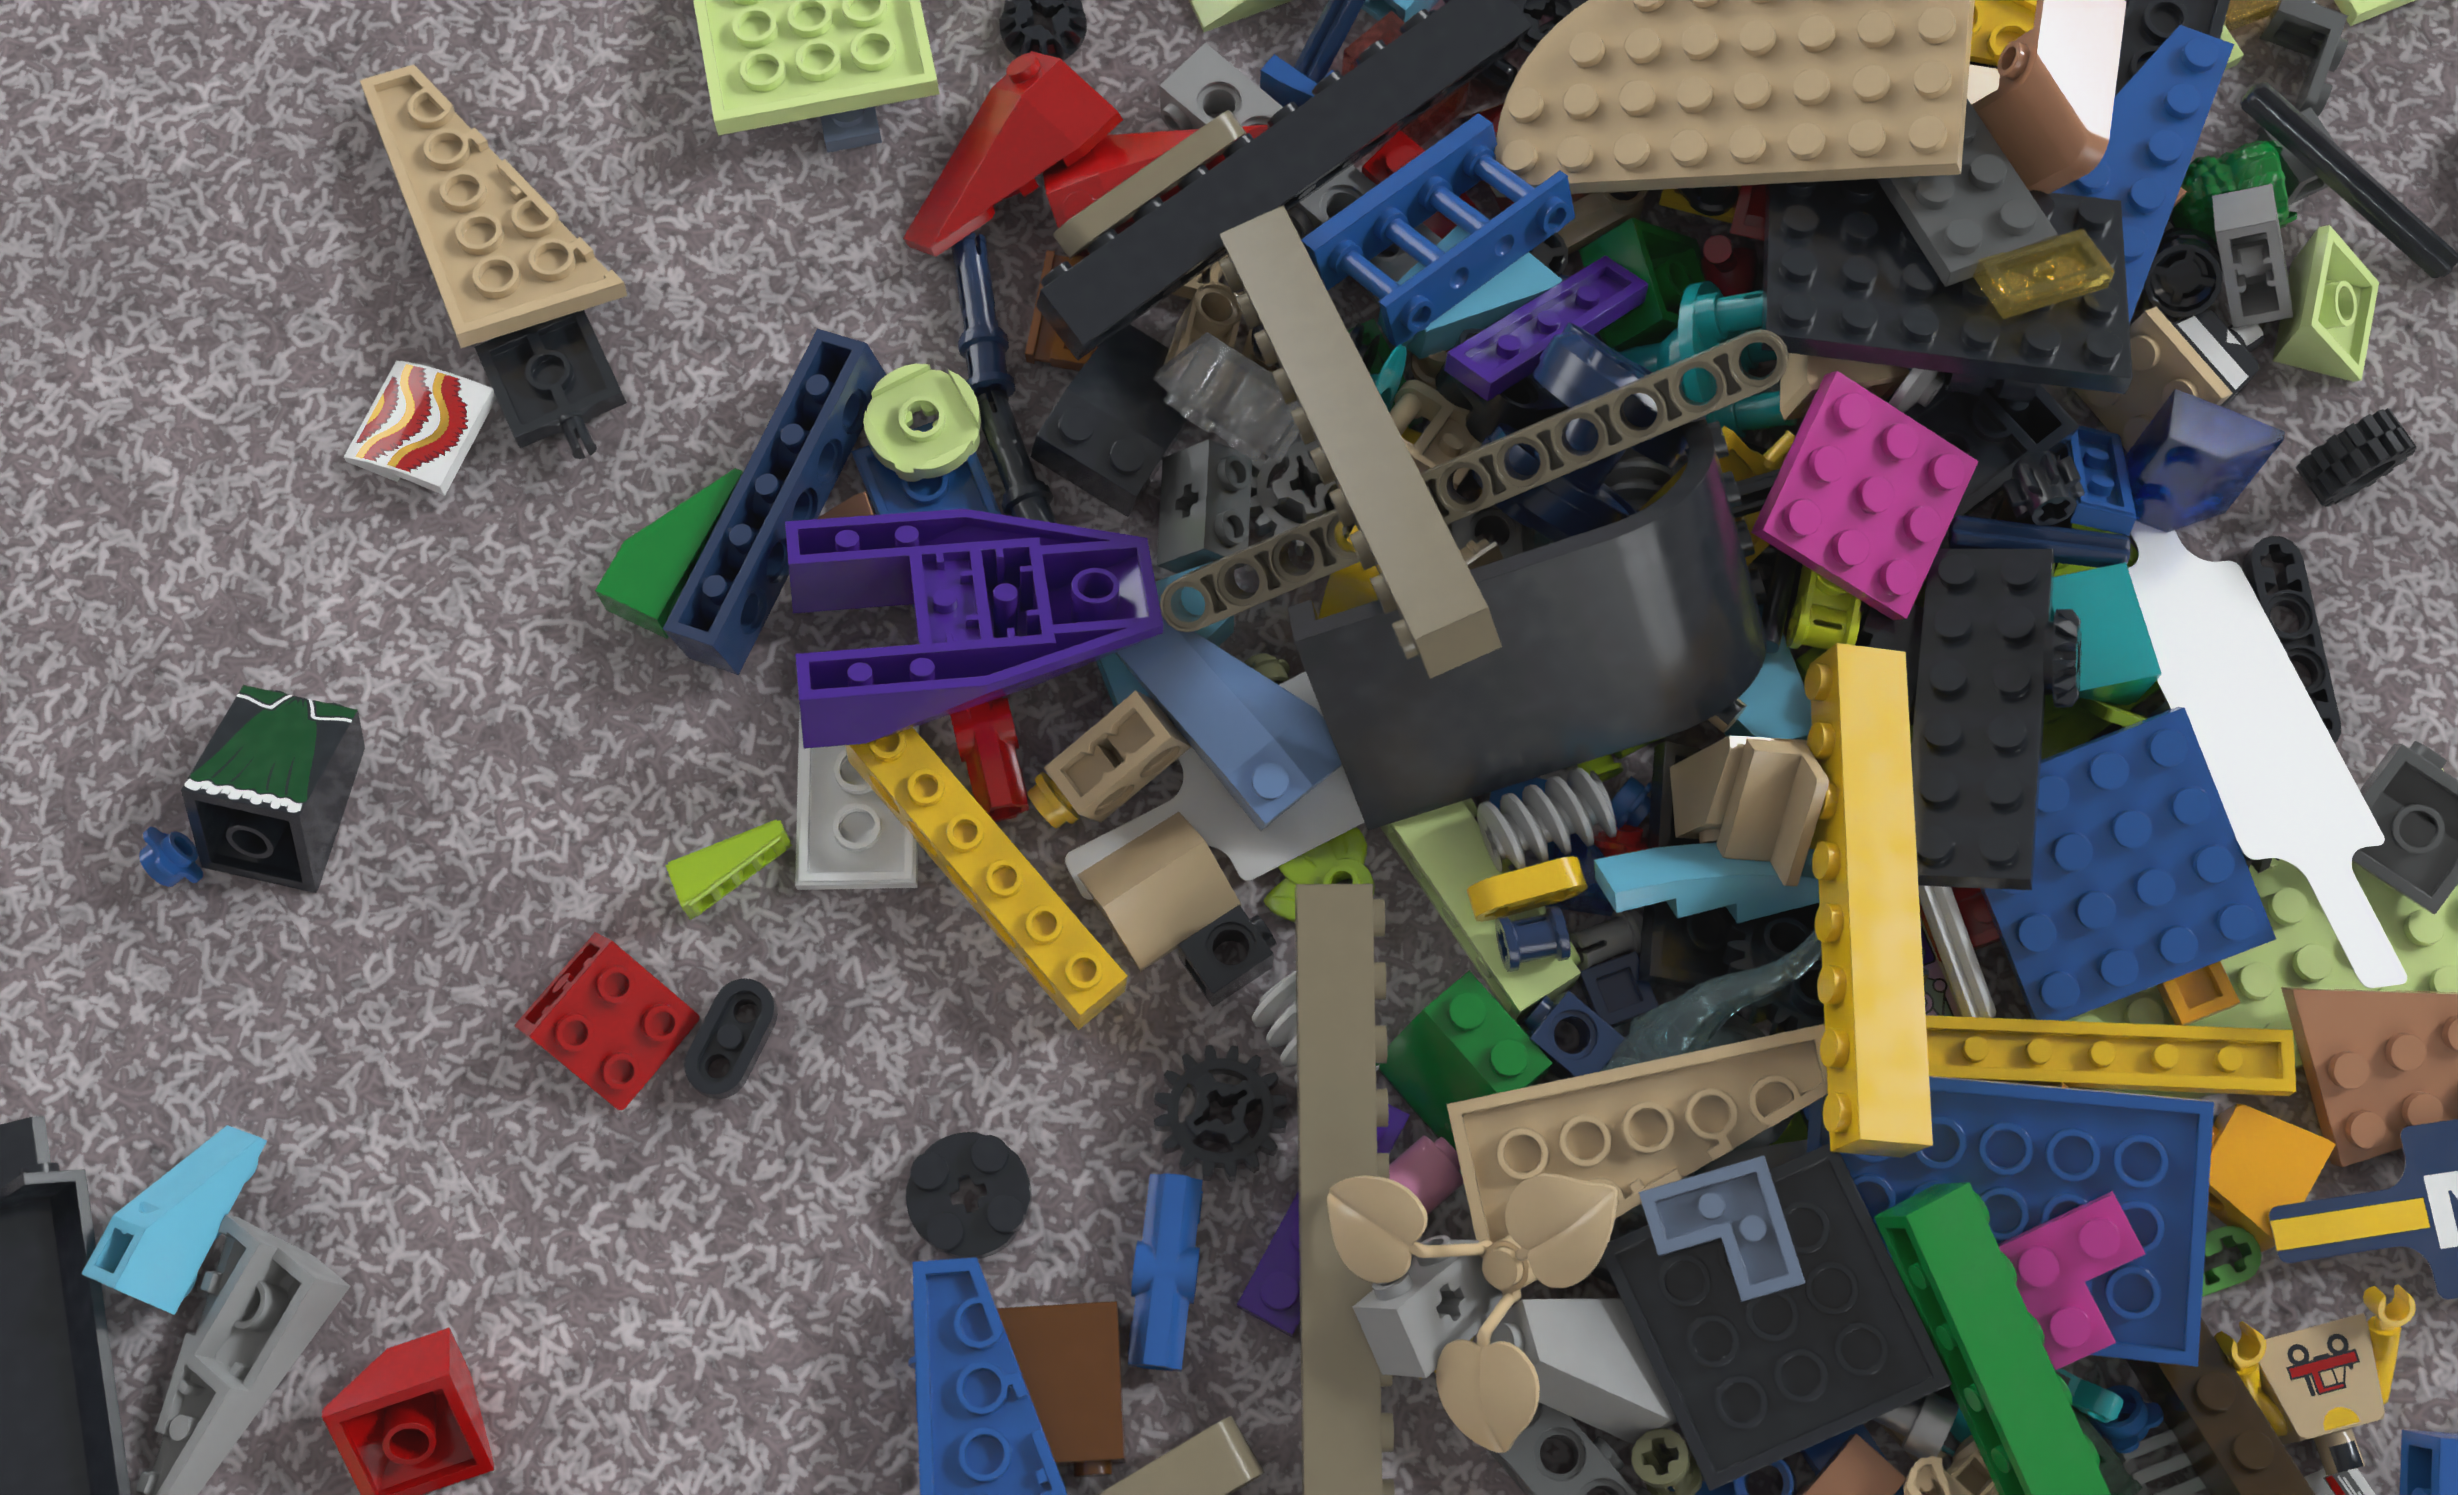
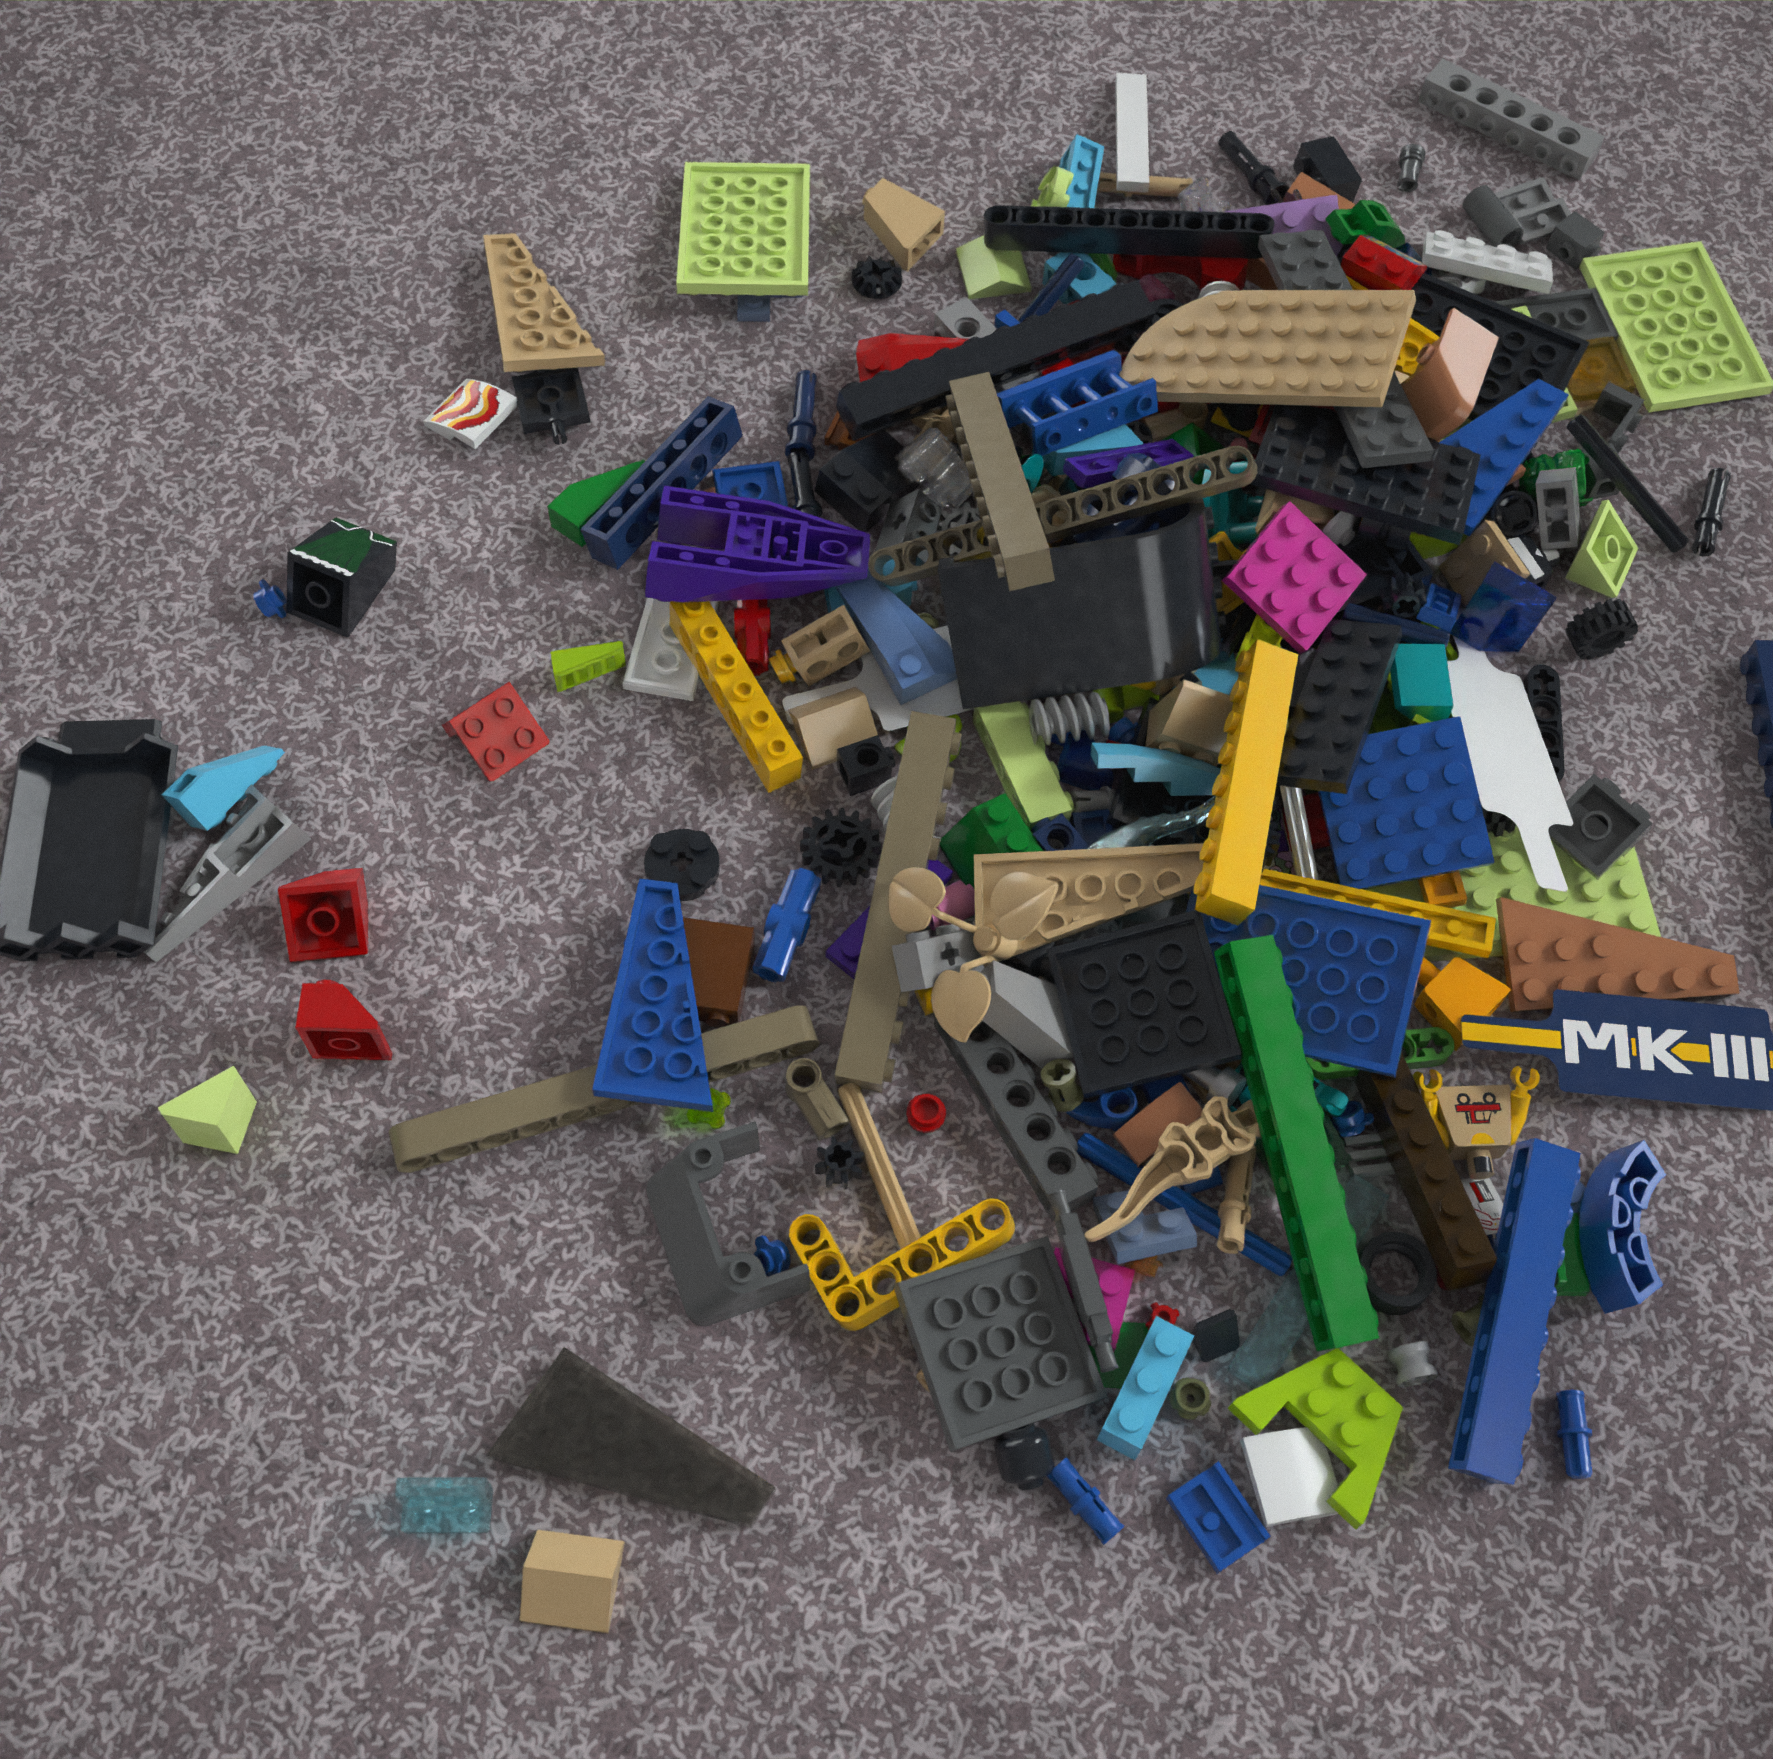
camera: 10 degrees right, 10 degrees down
(729, 1039) = (562, 755): black plate -> none
(919, 453) = (756, 474): yellowish green plate -> none
(1021, 130) = (853, 318): red wedge -> none
(1148, 183) = (915, 349): dark tan beam -> none
(1526, 888) = (1049, 754): yellow beam -> none
(1532, 938) = (1046, 780): dark blue bush -> none
(1734, 1206) = (1132, 933): sand blue plate -> none
(1774, 806) = (1202, 726): tan panel -> none
(2043, 273) = (1421, 469): clear yellow plate -> none
(2056, 1263) = (1317, 1002): dark pink plate -> none
(2062, 658) = (1392, 678): black gear -> none

